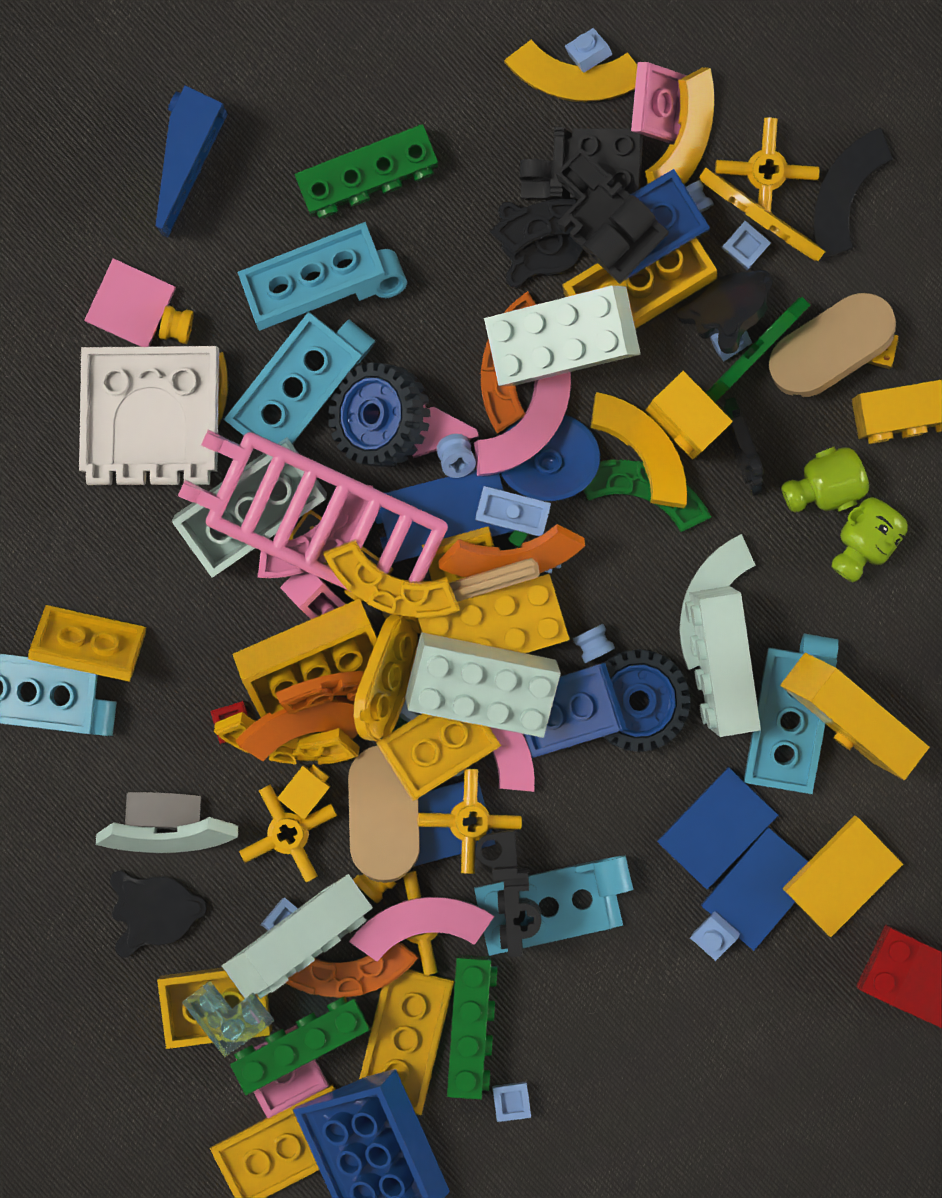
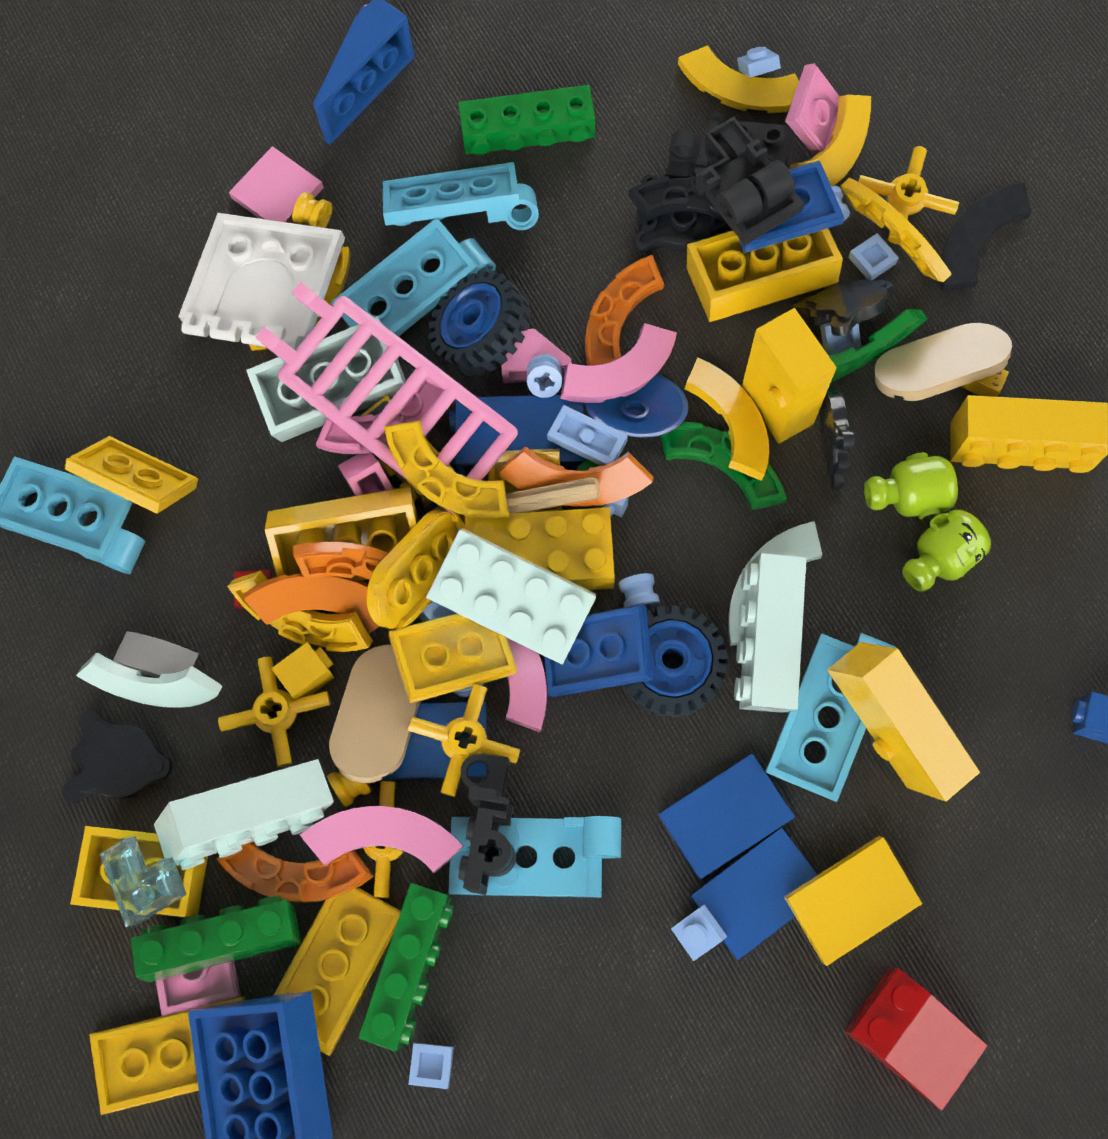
camera: 25 degrees right, 15 degrees down
(562, 336) = (677, 282): light aqua brick -> none

